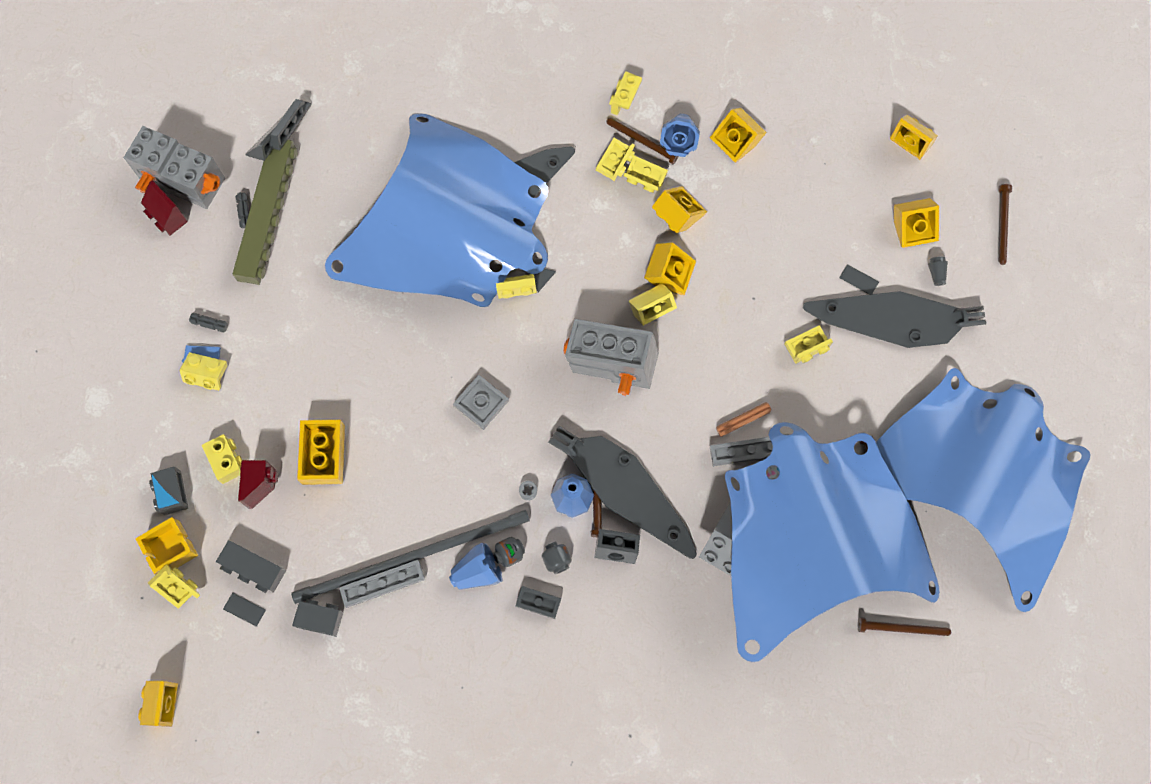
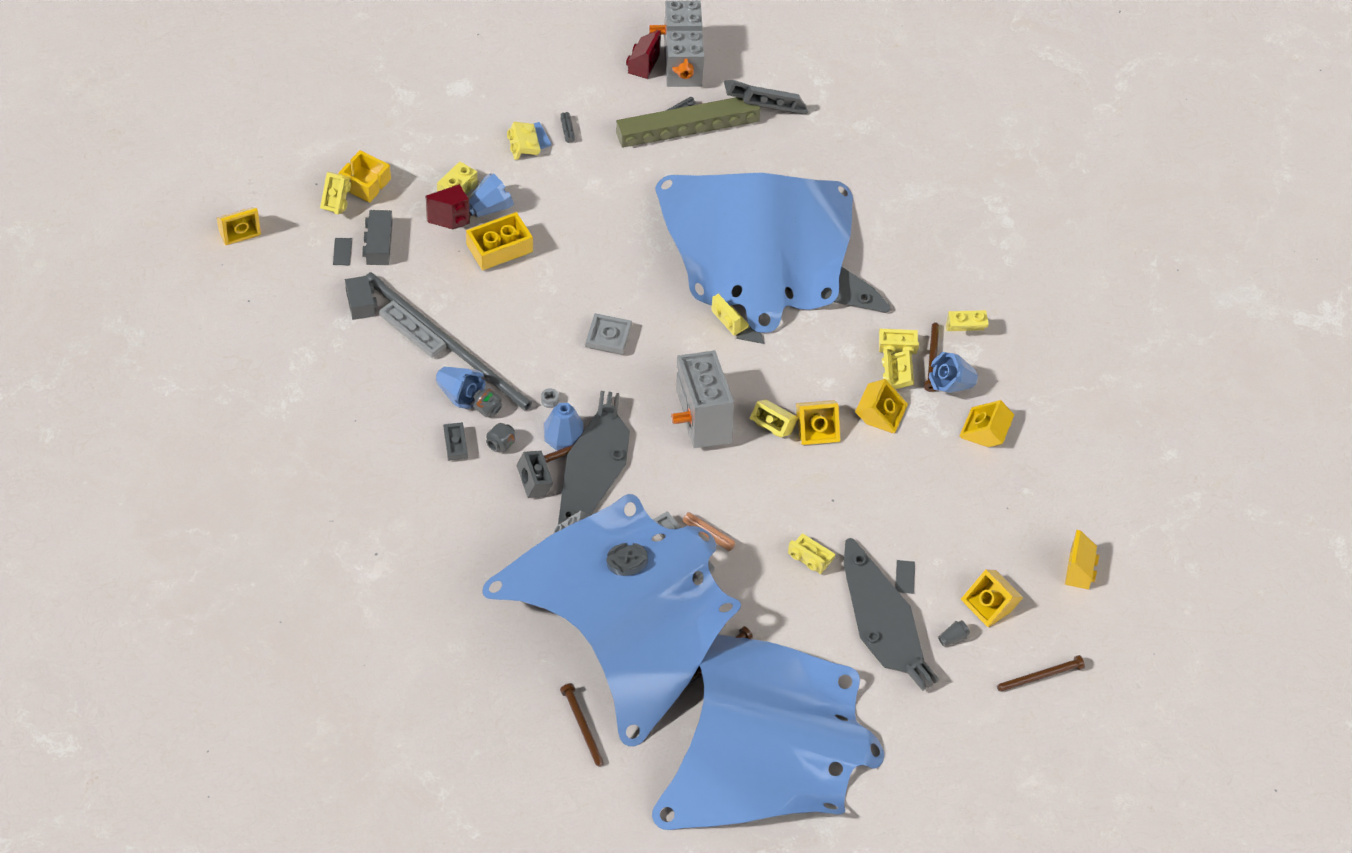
camera: 60 degrees right, 20 degrees down
(168, 491) = (411, 160): dark grey brick -> none
(261, 437) = (489, 197): none -> medium blue cone
(792, 513) = (627, 559): none -> dark grey tile

